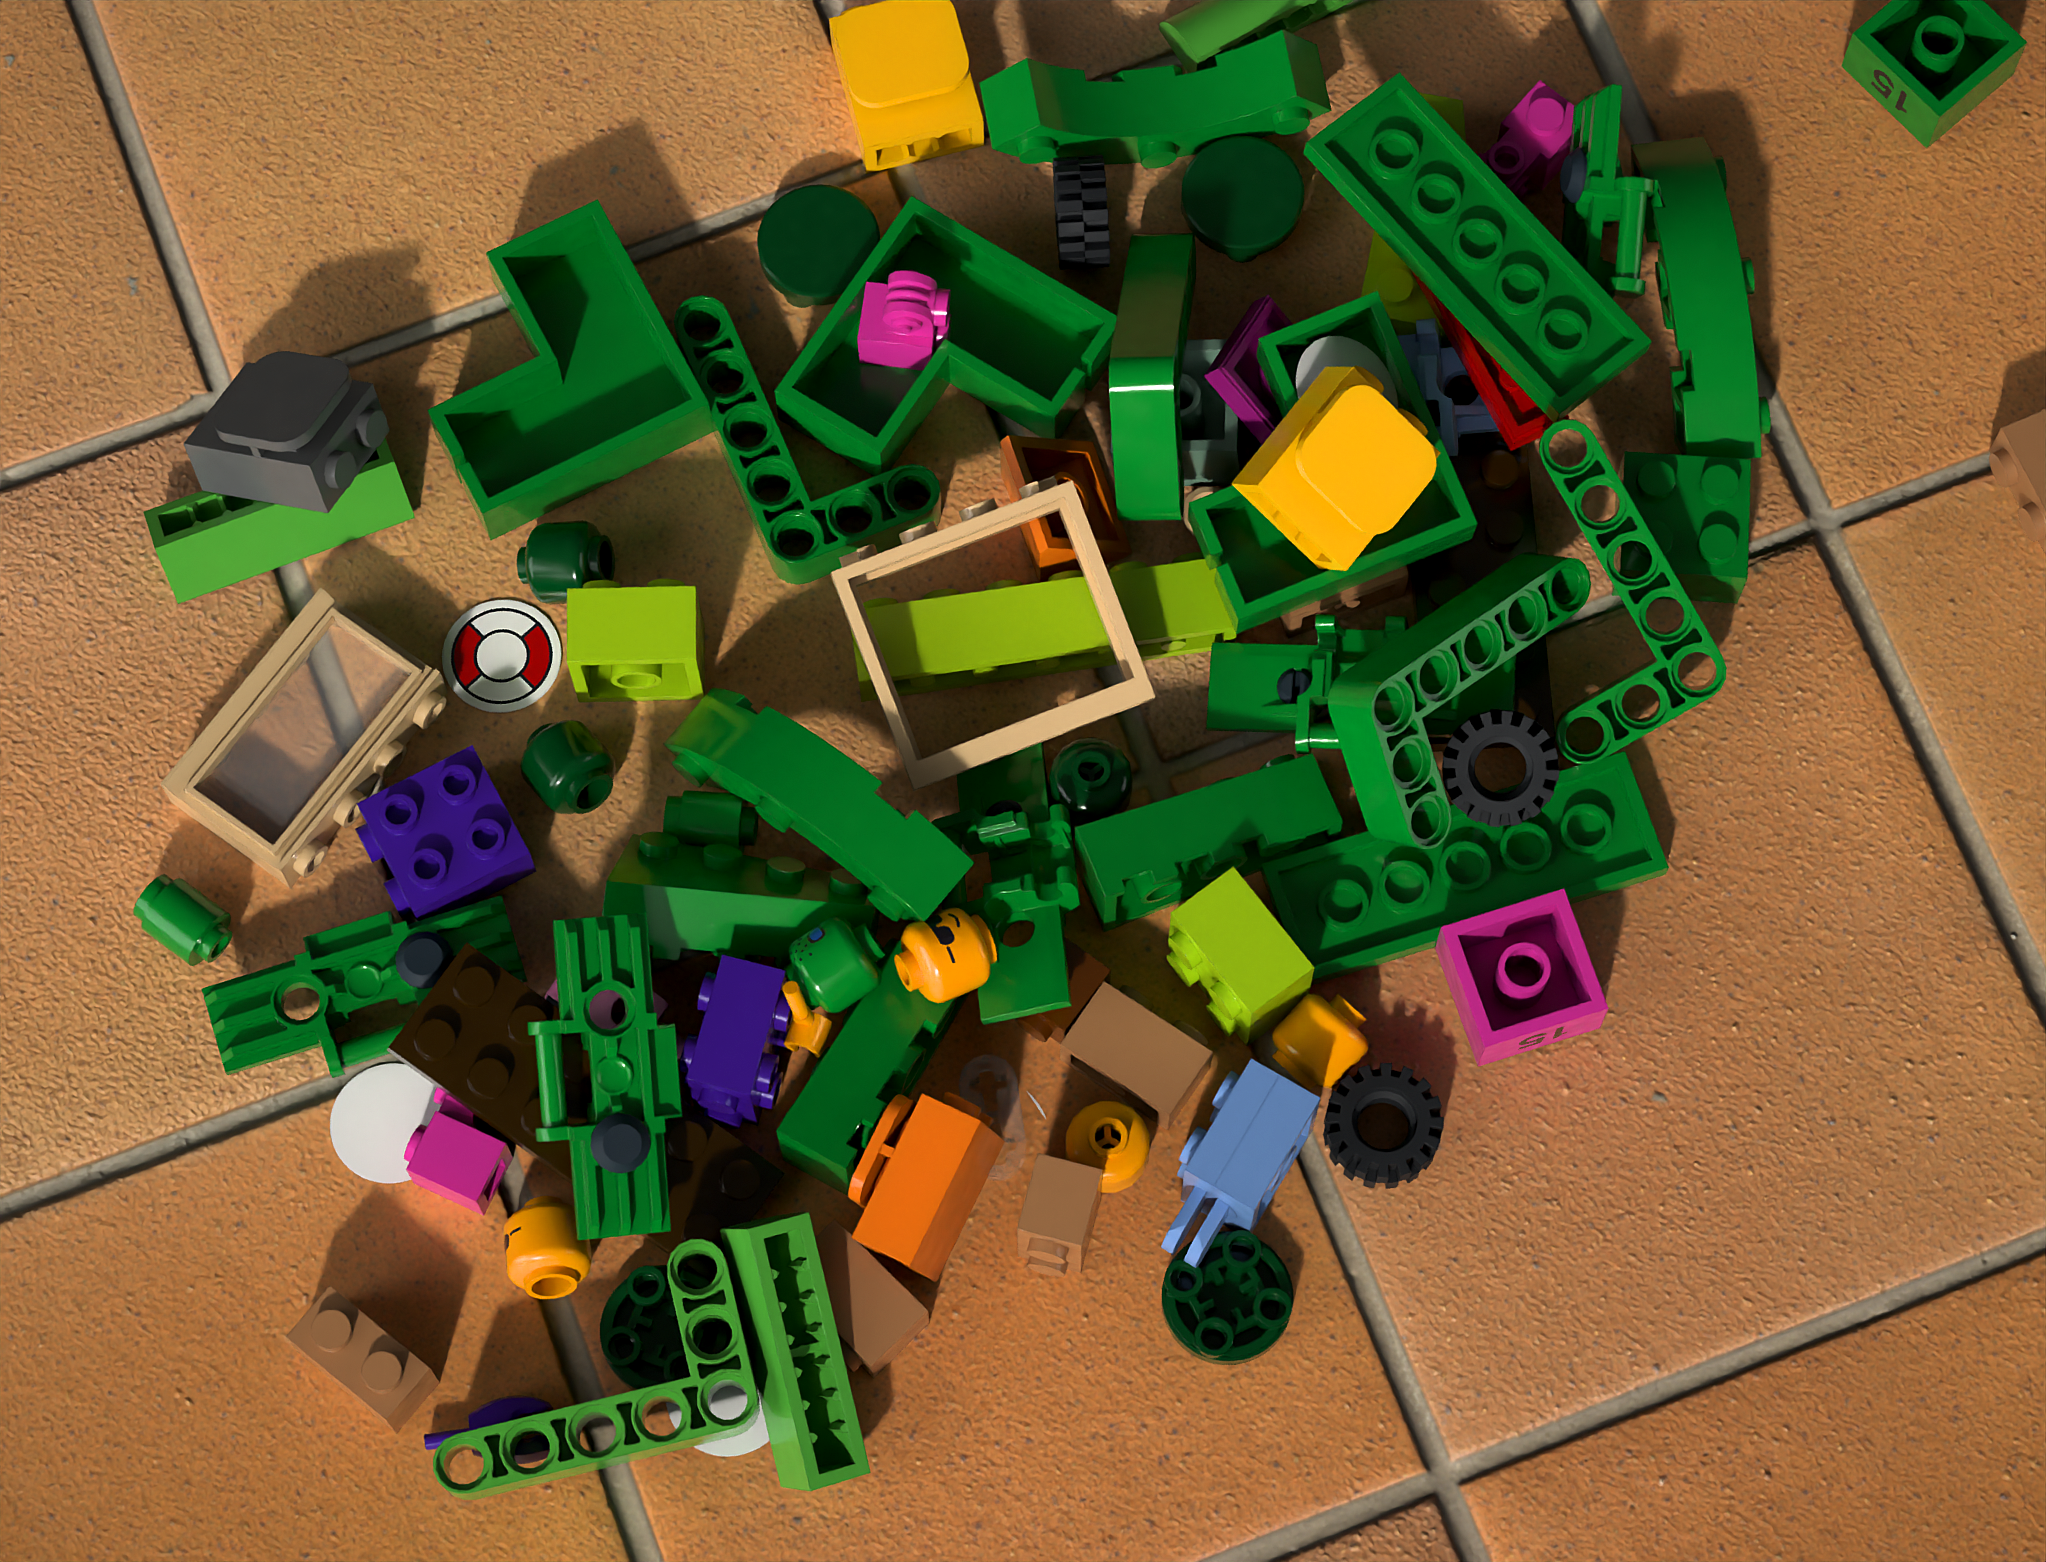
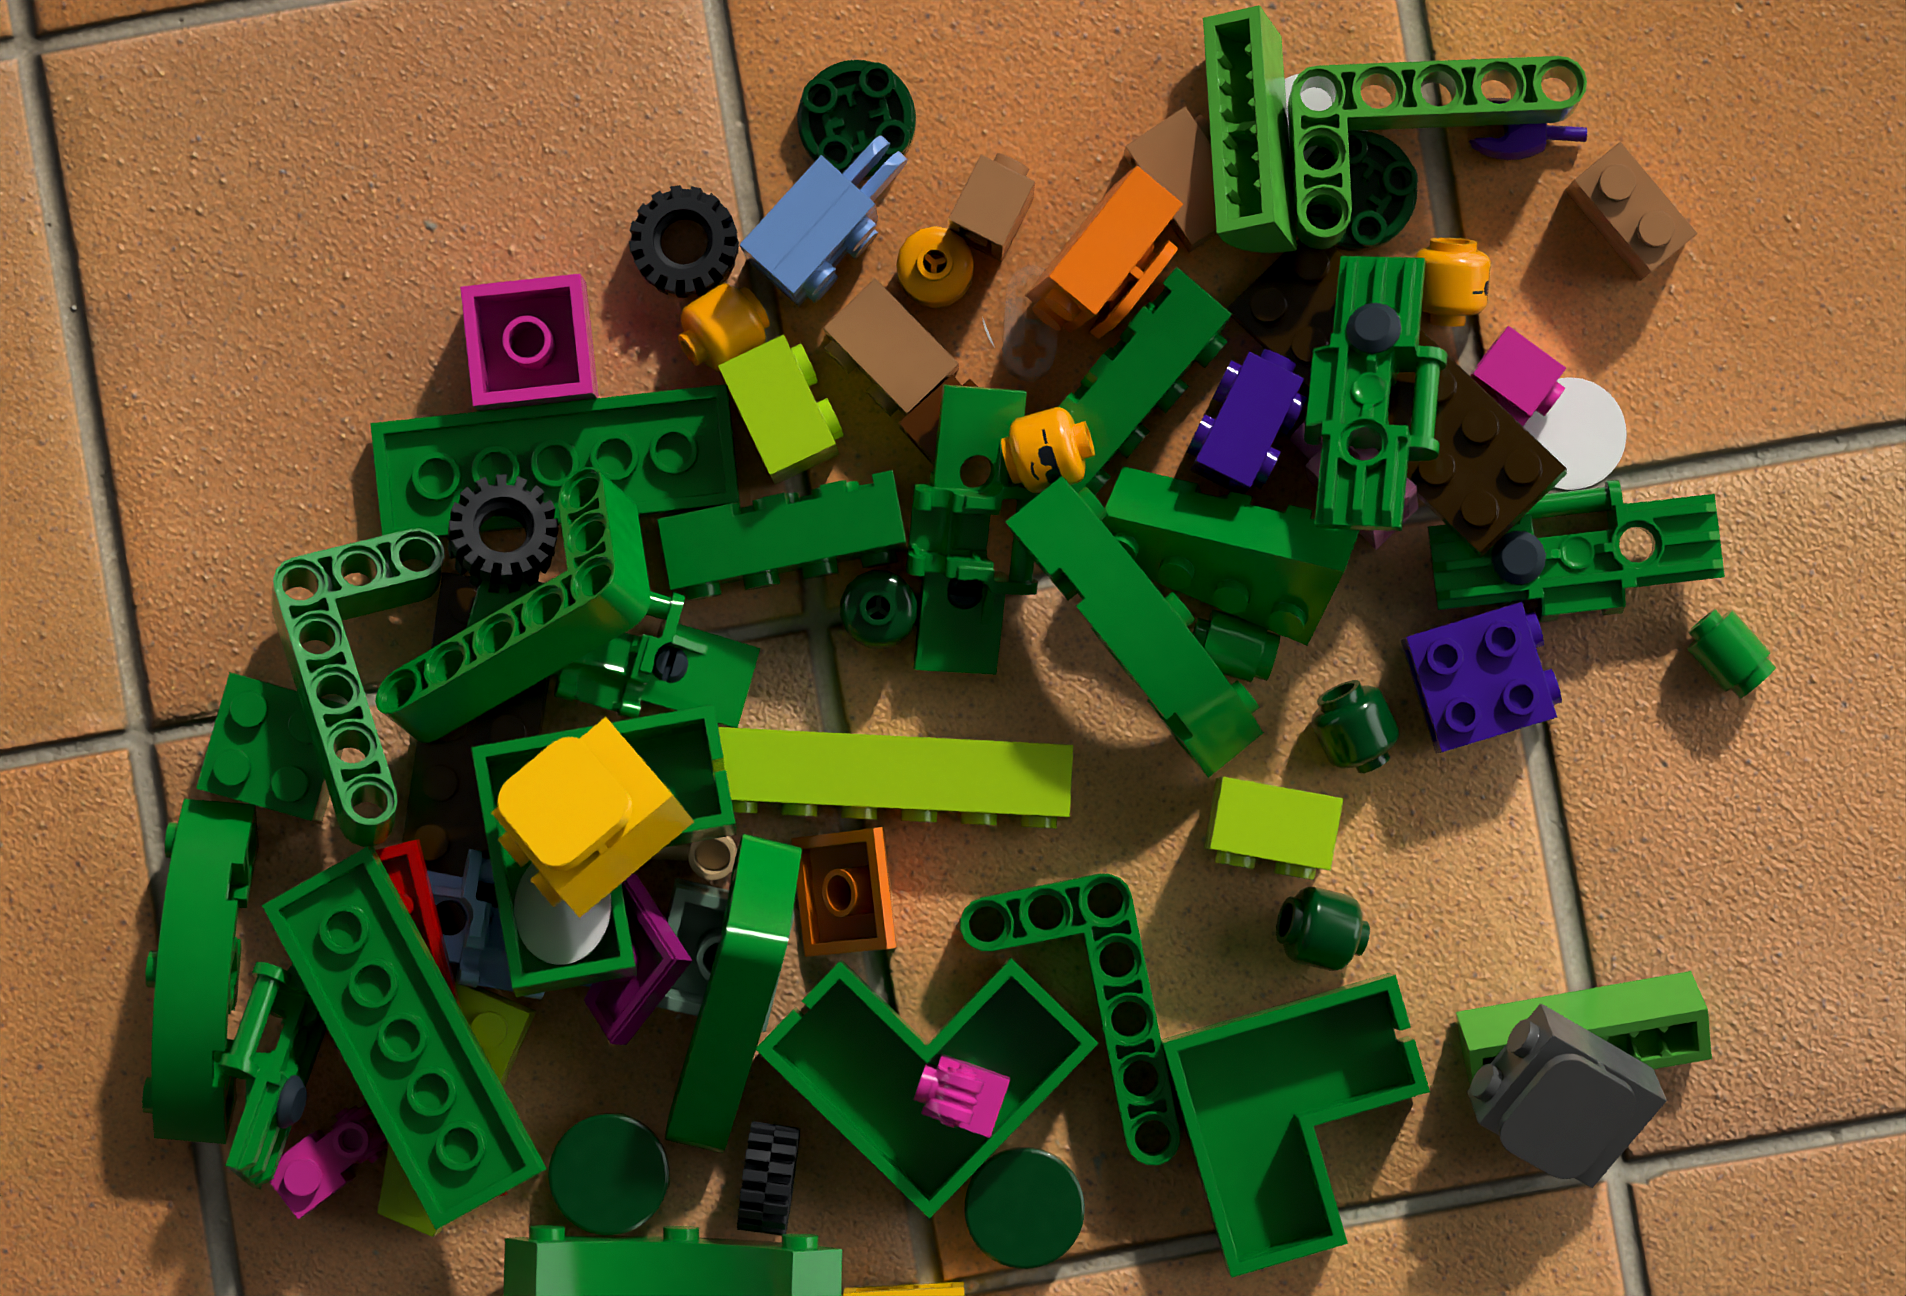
camera: 165 degrees left, 15 degrees up
(306, 739) = (1591, 804): window -> none
(501, 656) = (1397, 859): sticker -> none
(807, 1027) = (1186, 414): light orange hand -> none
(835, 964) = (1149, 465): green head -> none
(977, 524) = (932, 660): tan window -> none

